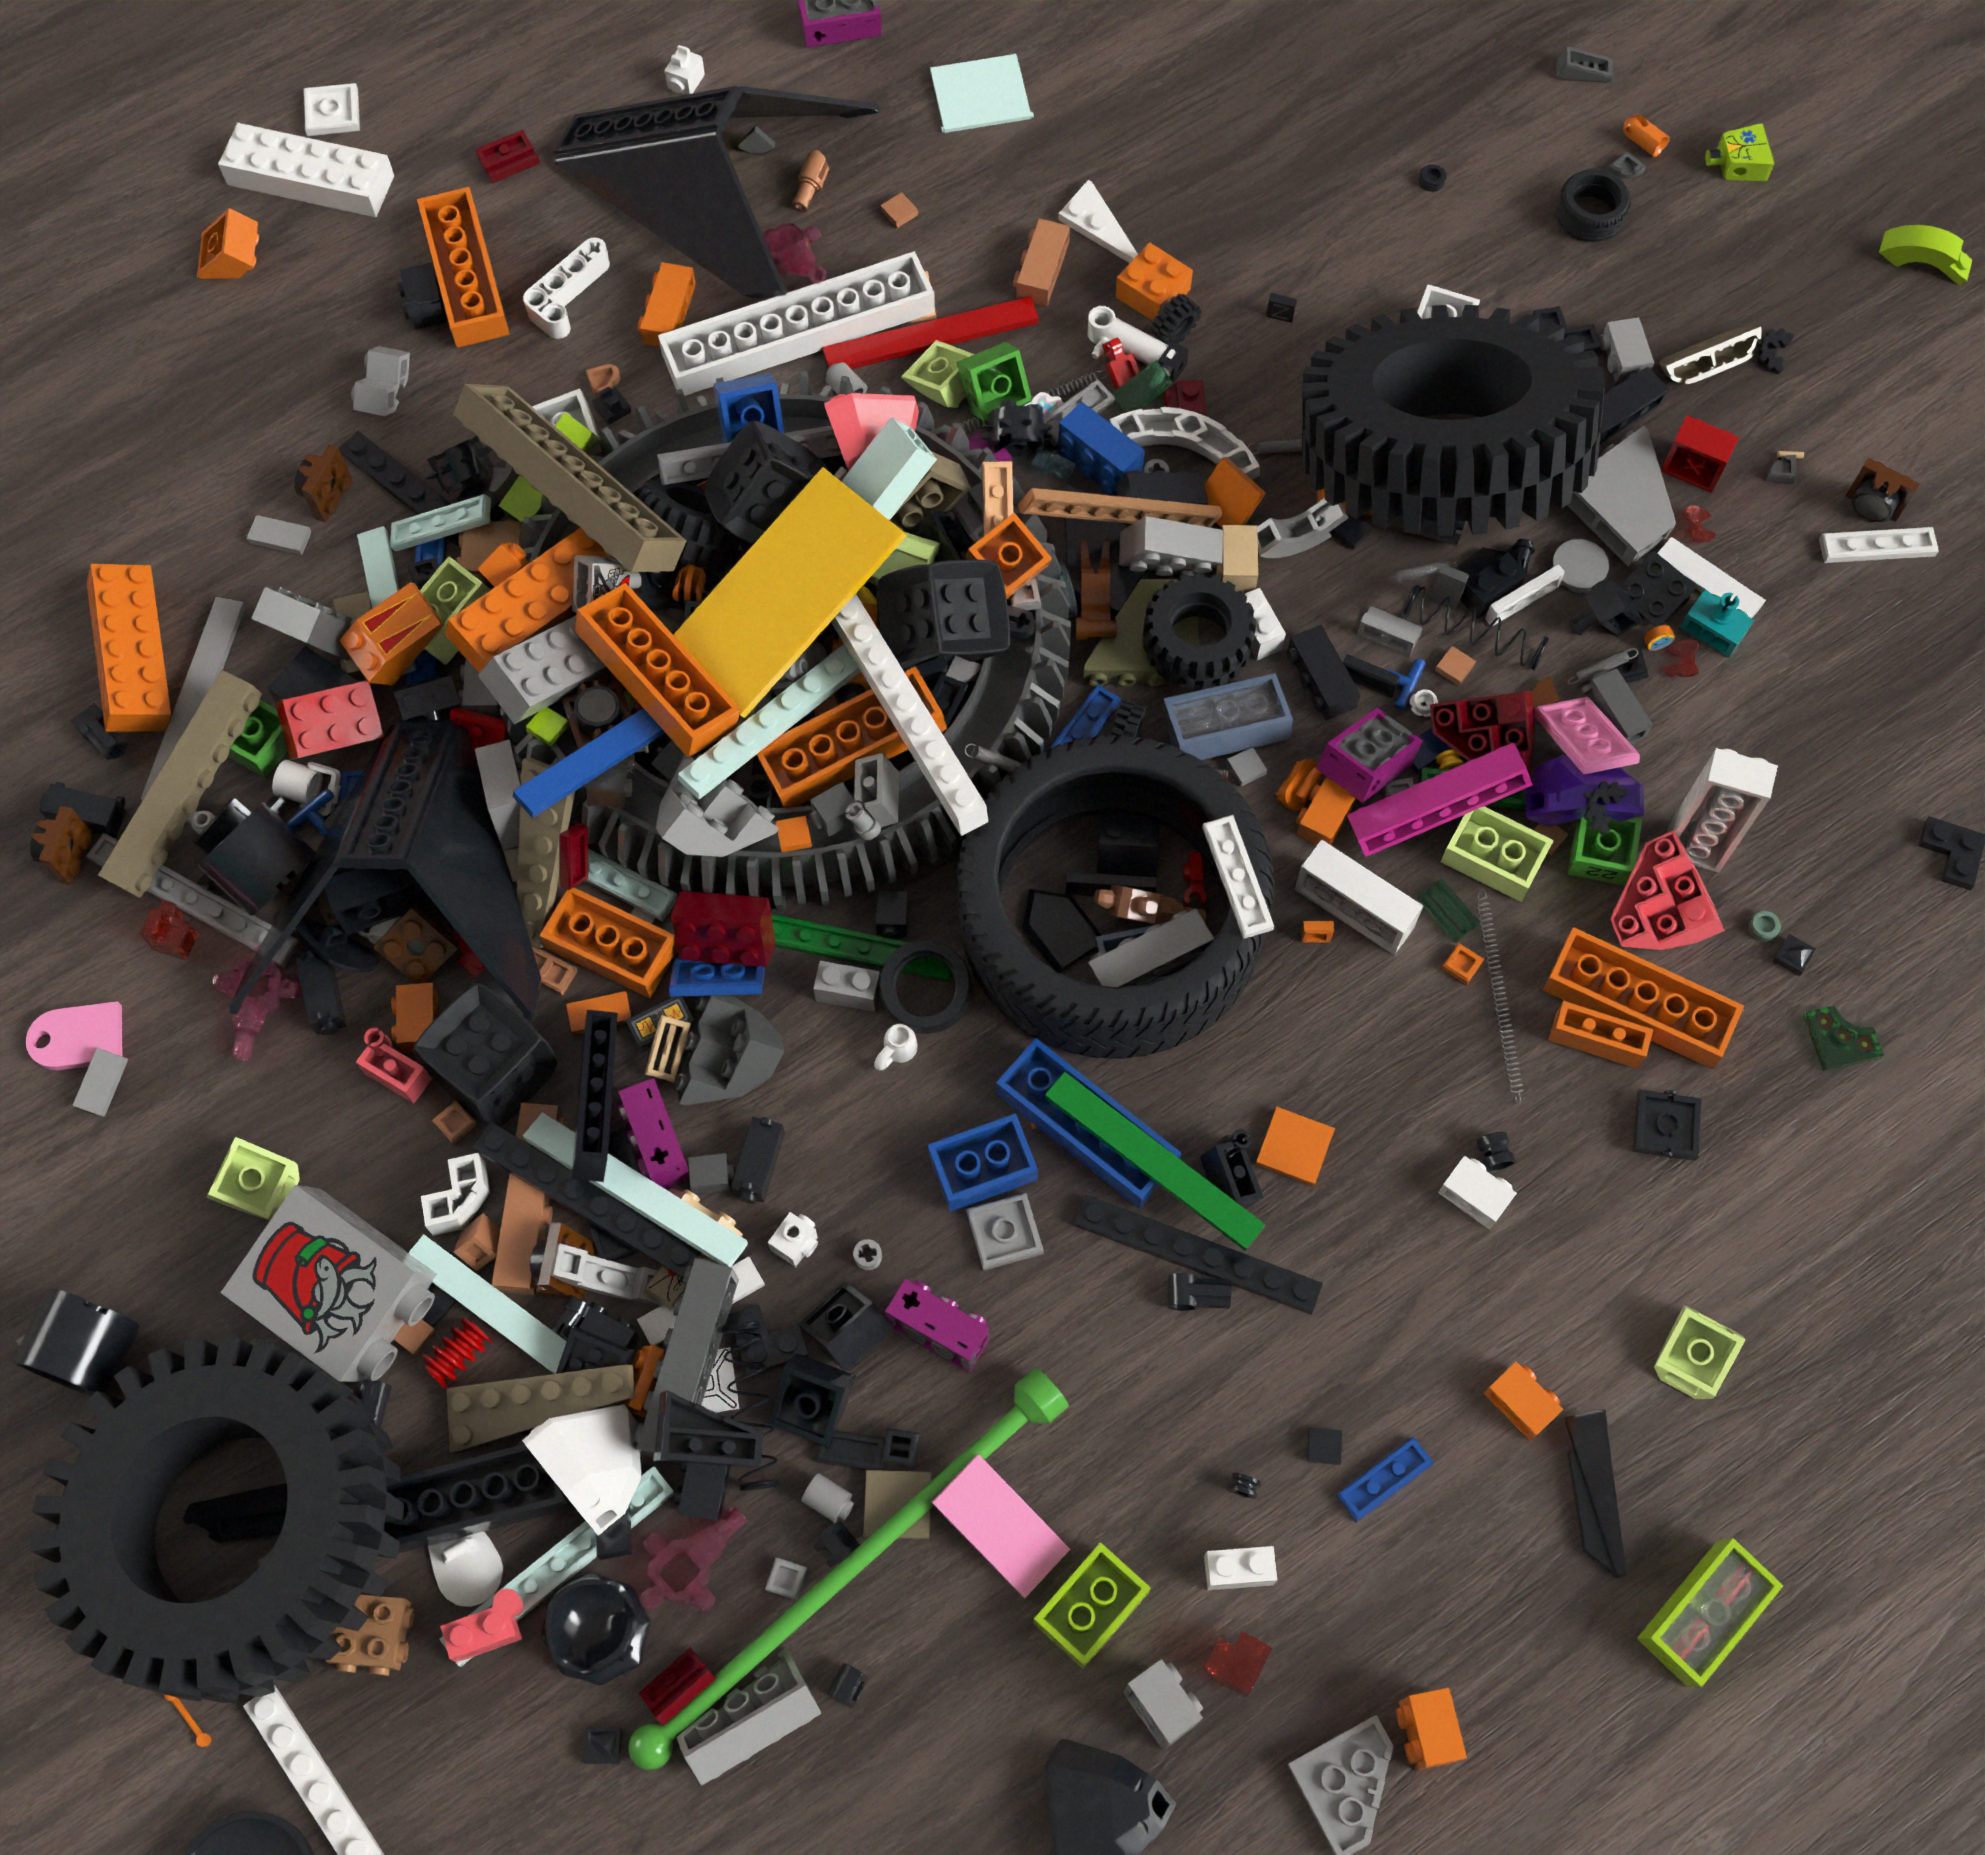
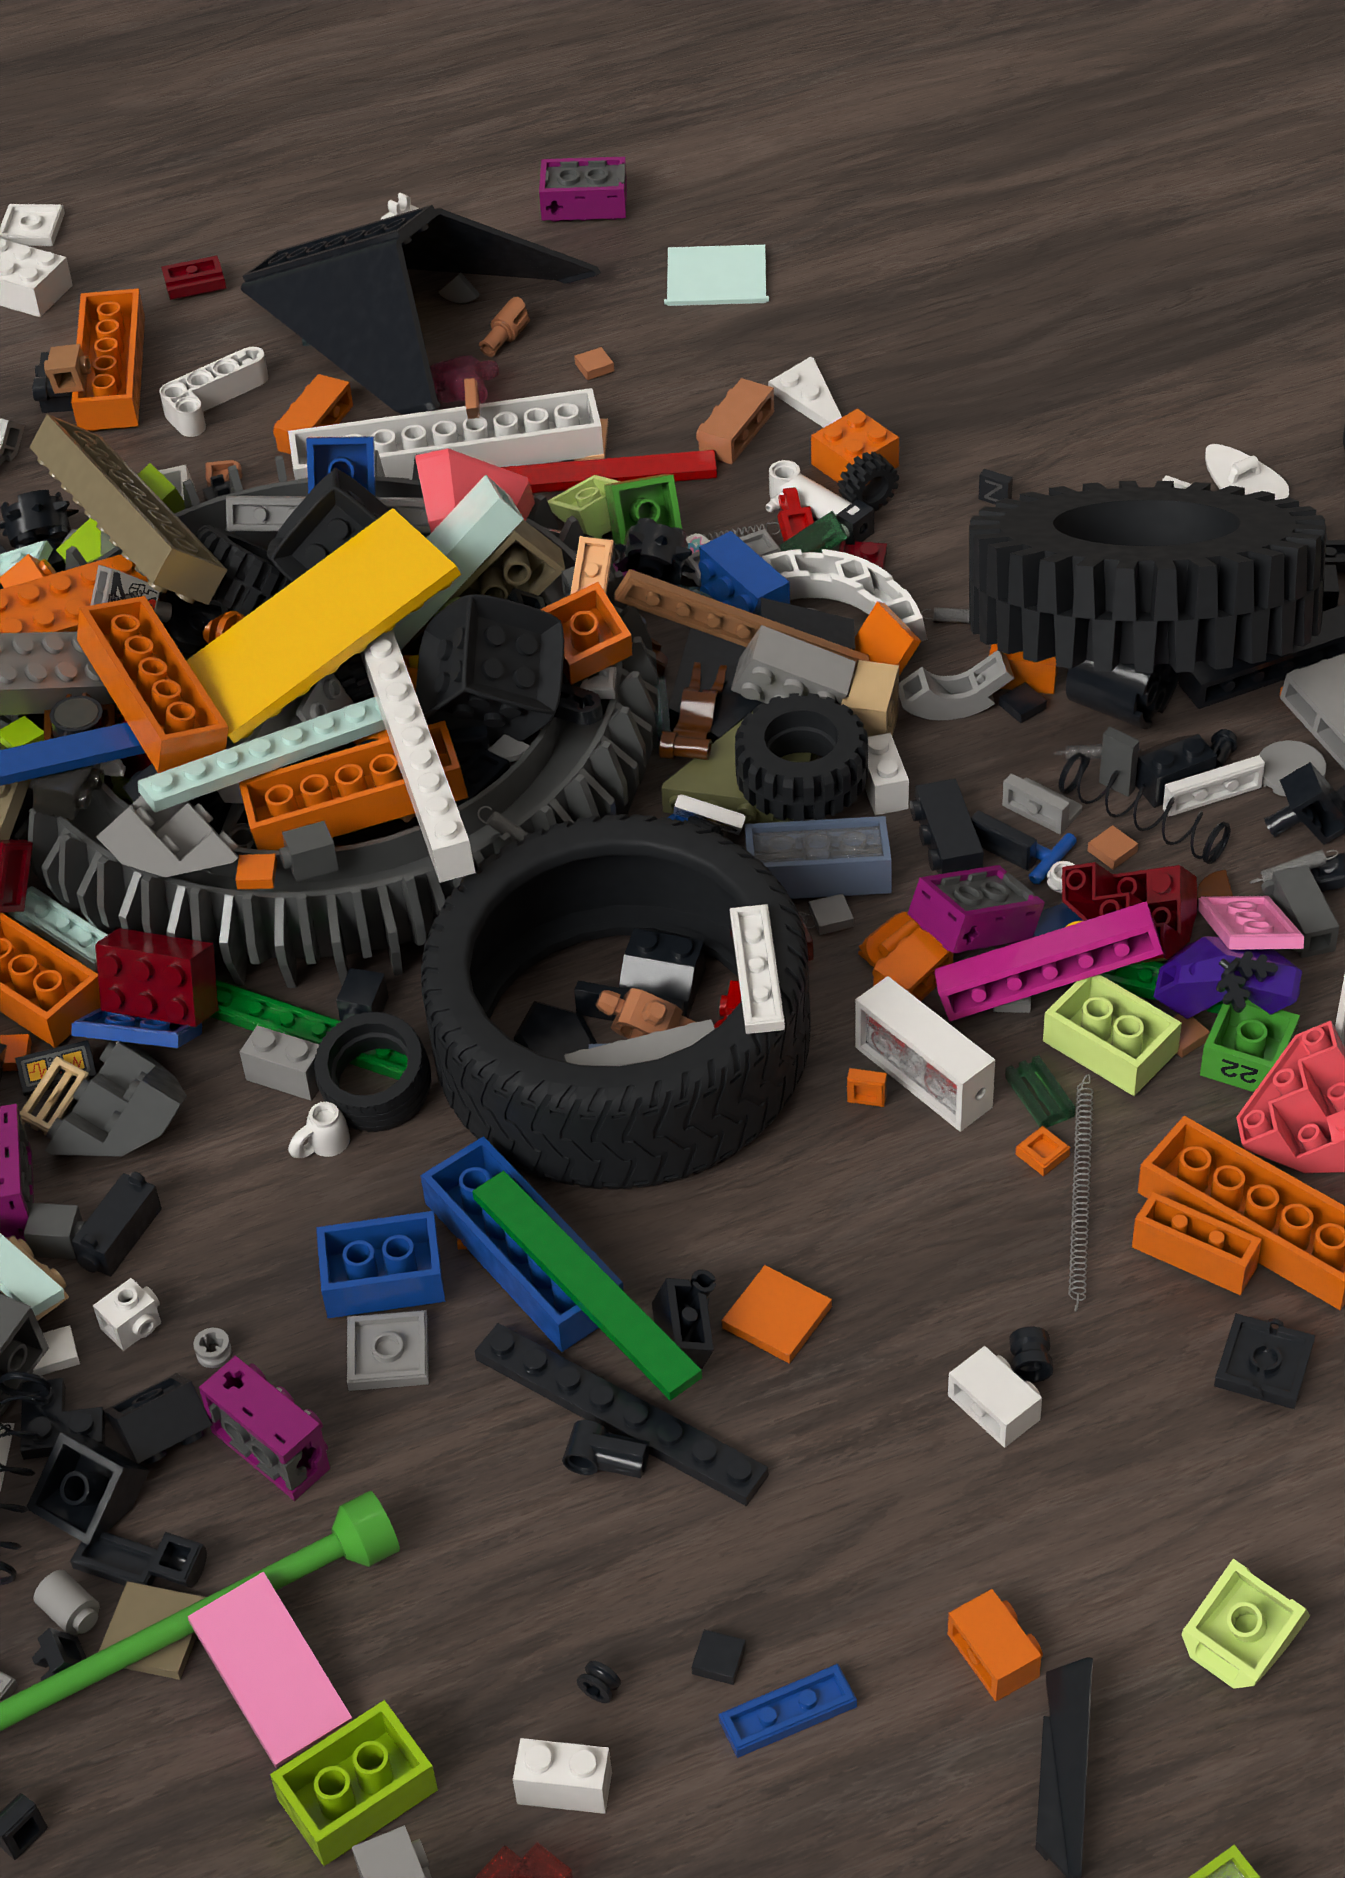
camera: 15 degrees right, 20 degrees down
(438, 294) = (67, 368): none -> medium nougat brick
(817, 284) = (472, 398): none -> nougat tile
(874, 796) = (357, 840): light grey hinge -> none
(1131, 693) = (726, 819): none -> white tile
(1432, 178) = (1204, 395): black tile -> none
(1483, 266) = (1238, 469): none -> white shield

